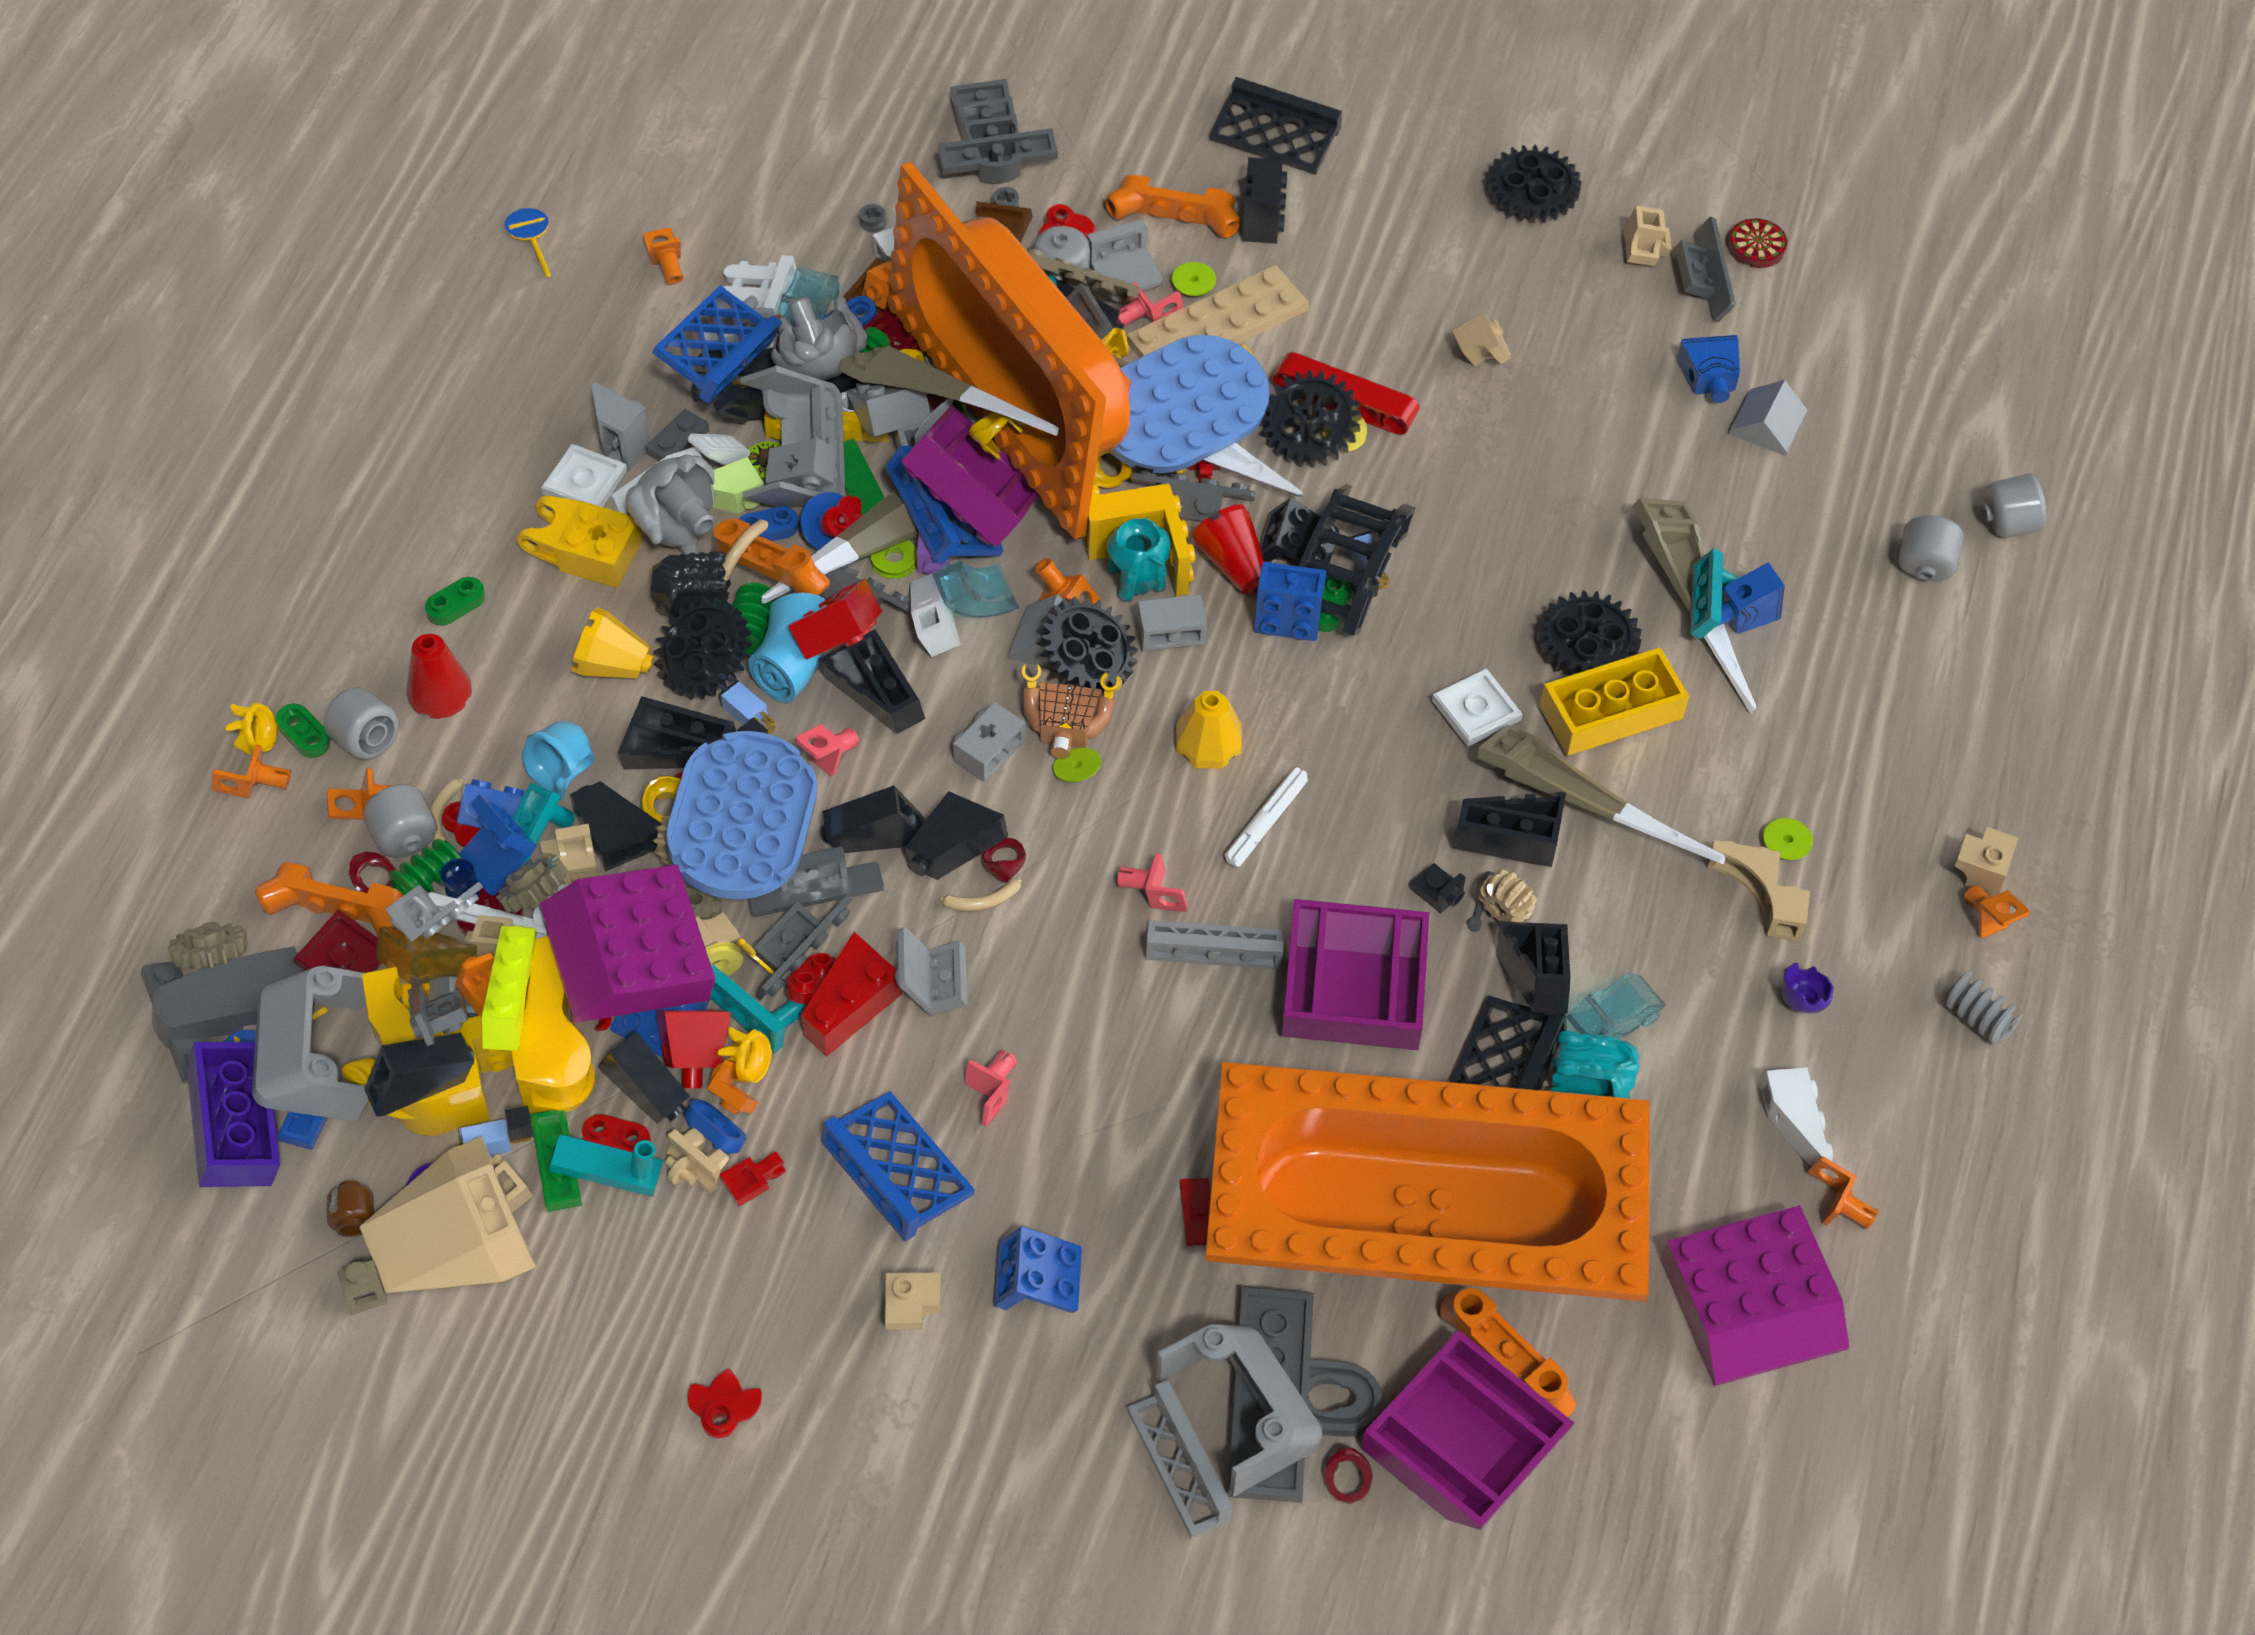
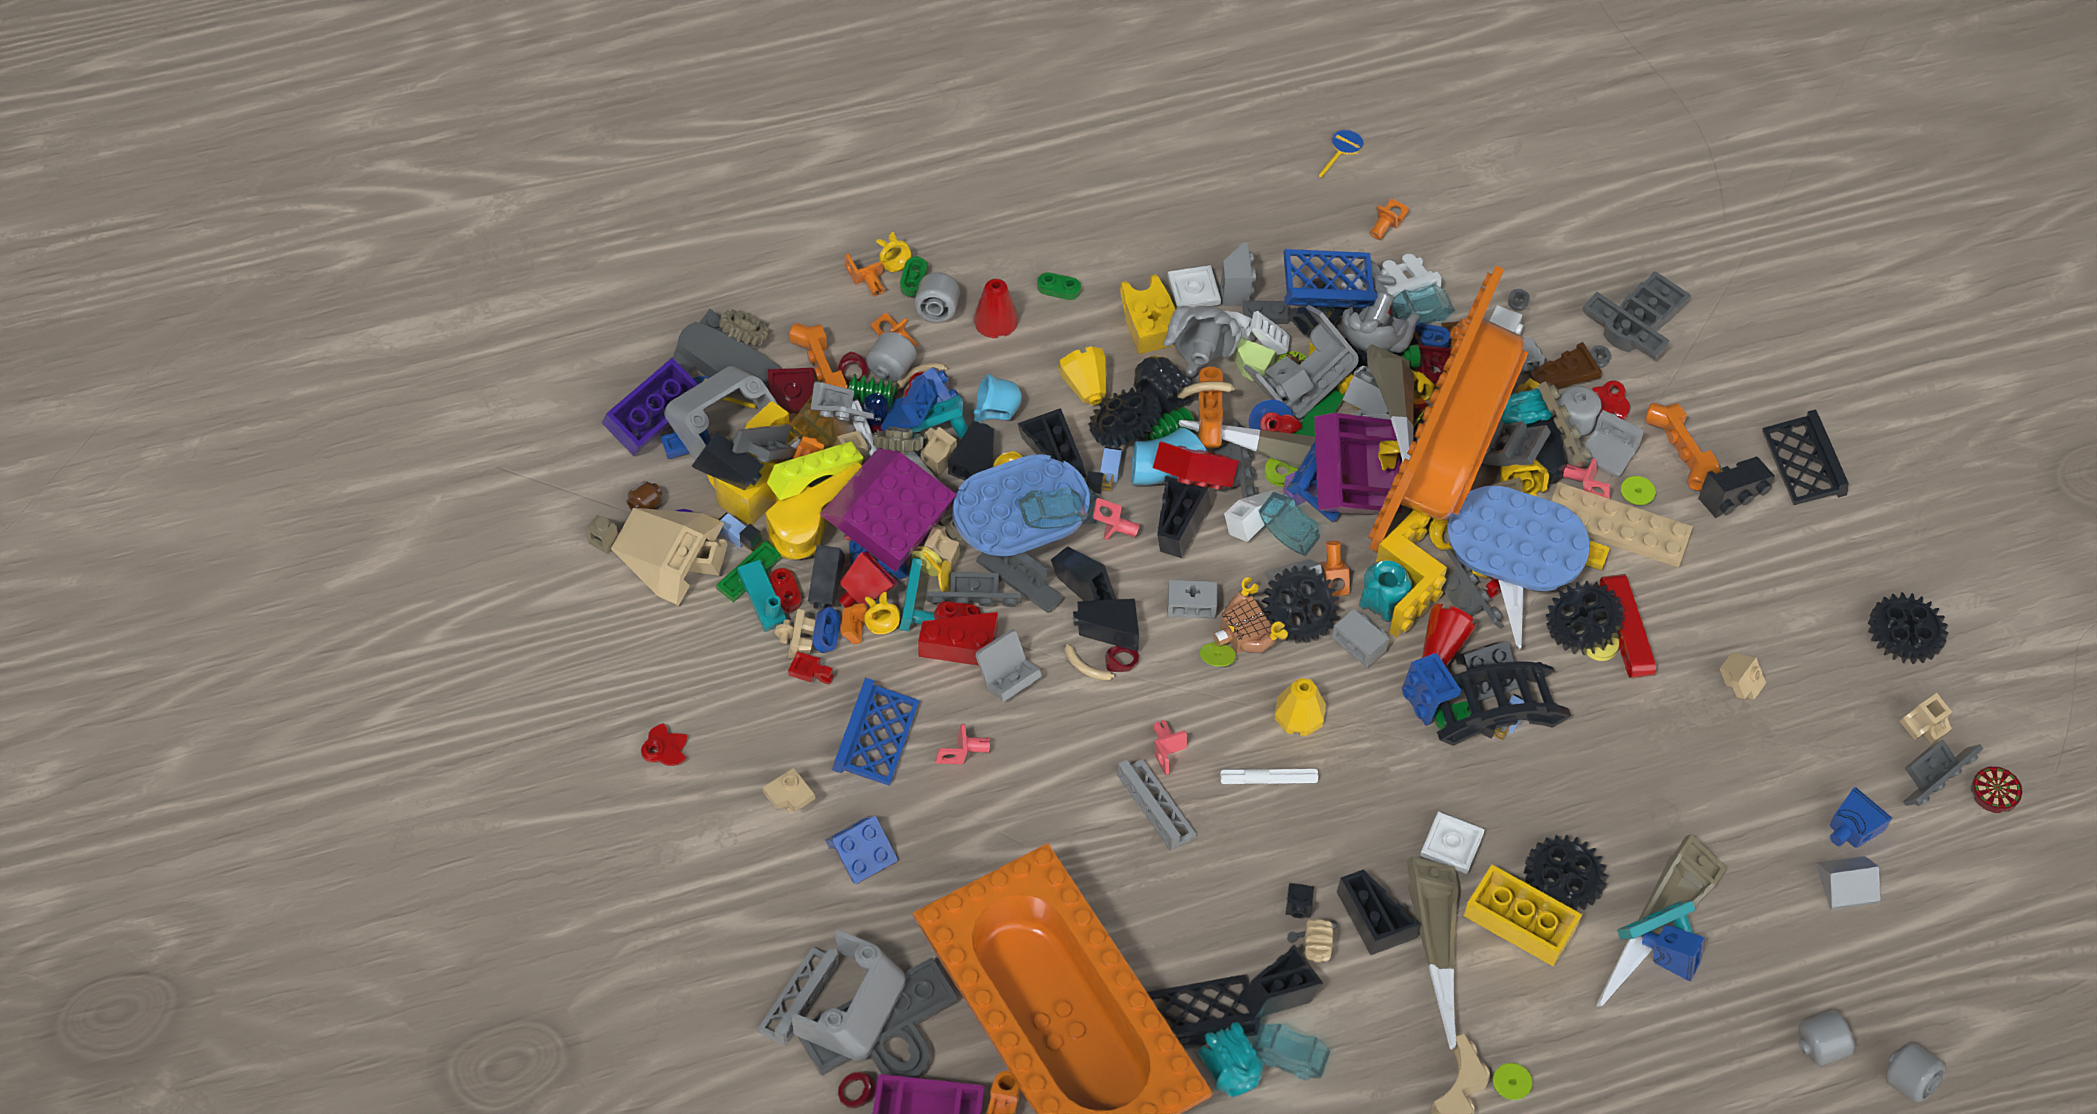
camera: 55 degrees right, 0 degrees up
(777, 528) = (1244, 394): blue plate -> none
(782, 783) = (1052, 508): none -> clear light blue brick
(1356, 974) = (1191, 888): magenta slope -> none

